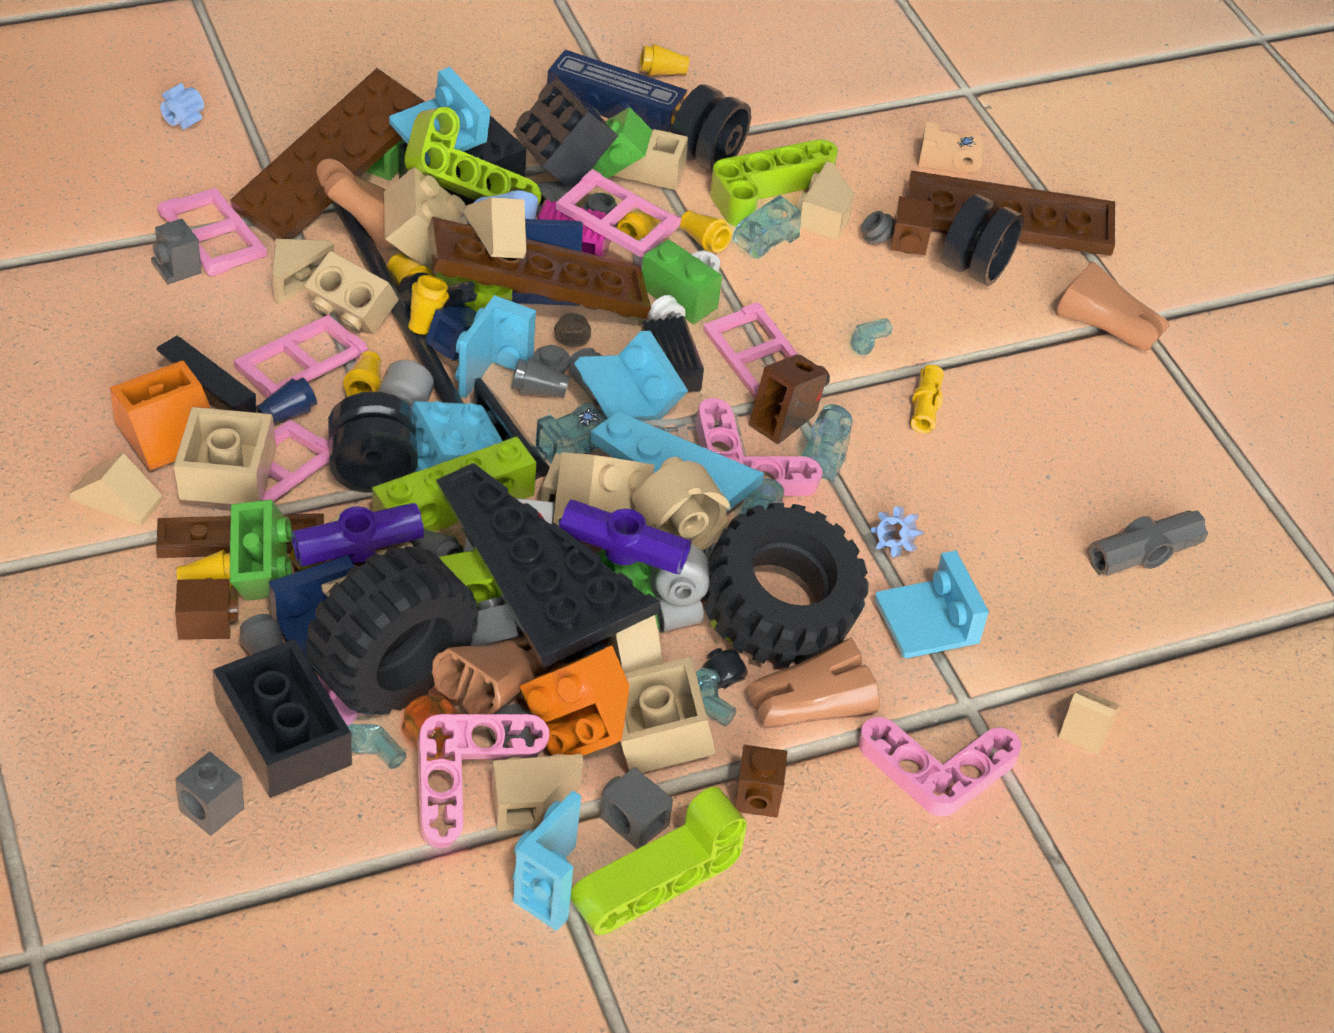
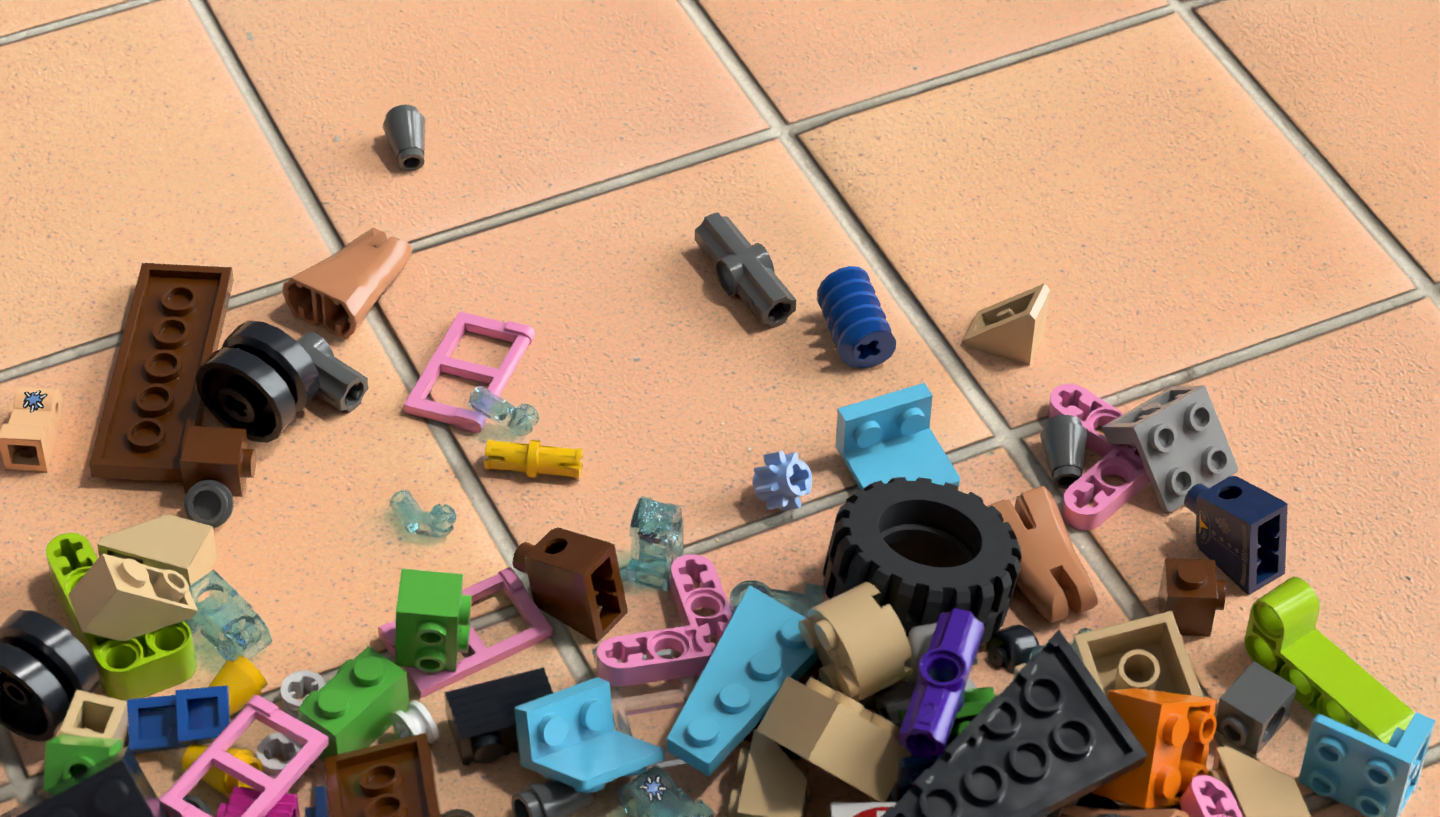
camera: 90 degrees left, 0 degrees up
(680, 197) = (178, 719): none -> blue slope
(738, 300) = (431, 620): none -> bright green brick
(763, 160) = (129, 599): none -> tan slope
(831, 828) = (1241, 530): none -> dark blue torso
(939, 802) = (1176, 441): none -> light grey bracket
(940, 730) = (1064, 447): none -> dark grey cone
(969, 380) = (515, 419): none -> clear light blue arm
(1015, 283) = (339, 383): none -> dark grey piece
(1030, 361) = (464, 419): none -> bright pink window
(1091, 598) = (855, 318): none -> blue piece
(1285, 351) = (406, 136): none -> dark grey cone

